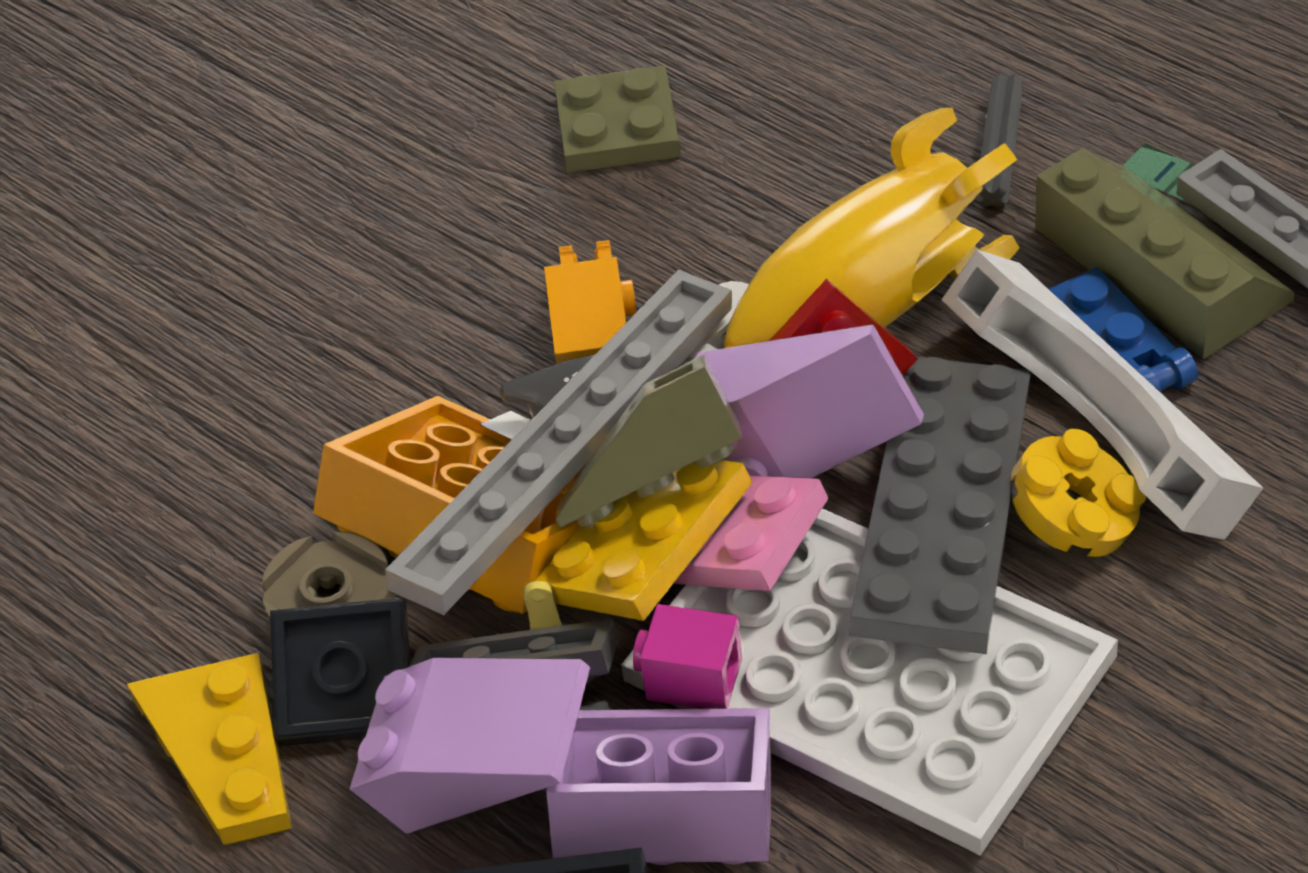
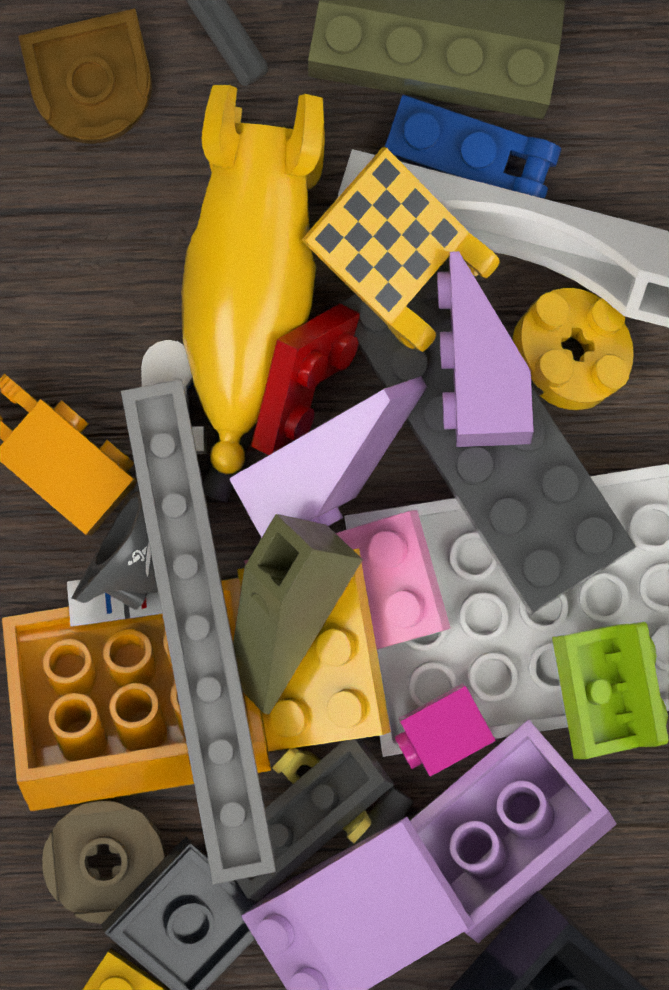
camera: 50 degrees left, 40 degrees up
(854, 130) = (89, 76): none -> pearl gold tile
(856, 724) = (610, 689): none -> lime bracket
(970, 435) = (489, 374): none -> lavender slope
(986, 298) = (389, 240): none -> yellow flag

